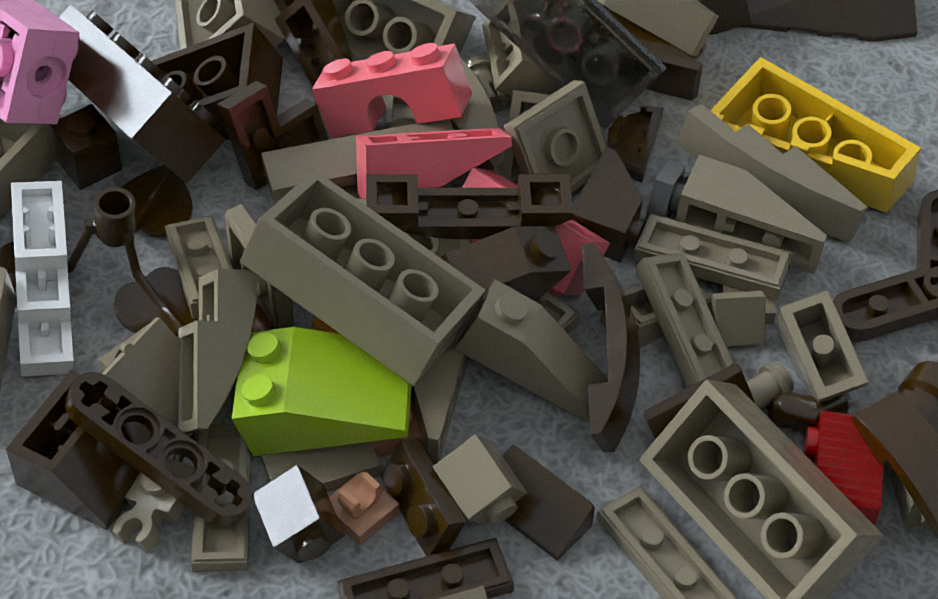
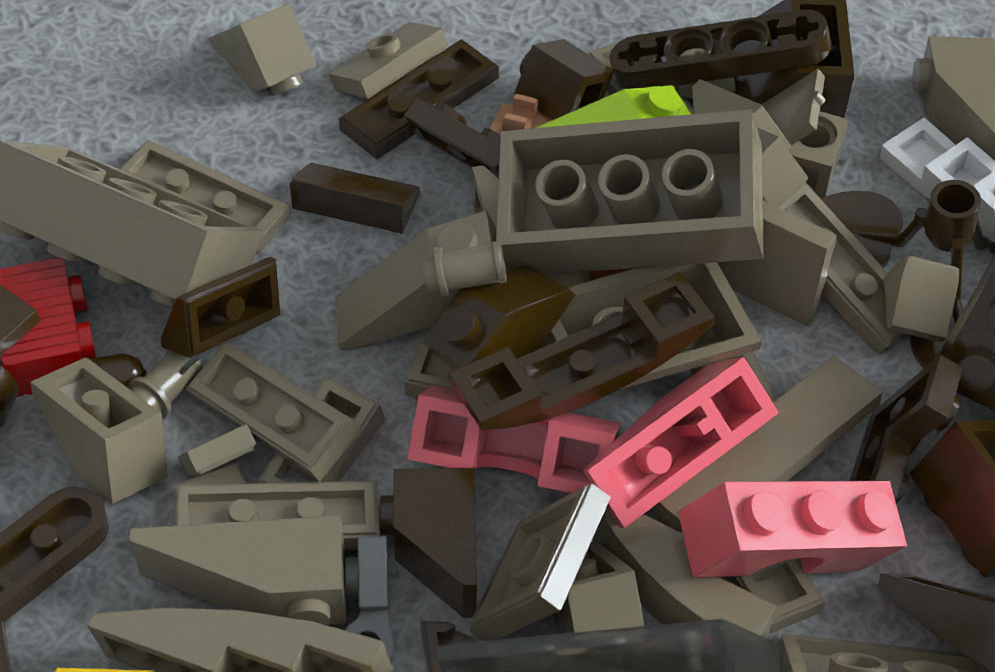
camera: 155 degrees right, 0 degrees up
(169, 218) = (920, 297): none -> dark tan slope
(480, 481) = (413, 162): dark tan brick -> none
(523, 272) = (463, 268): none -> dark tan pin
(612, 401) = (370, 369): dark brown slope -> none

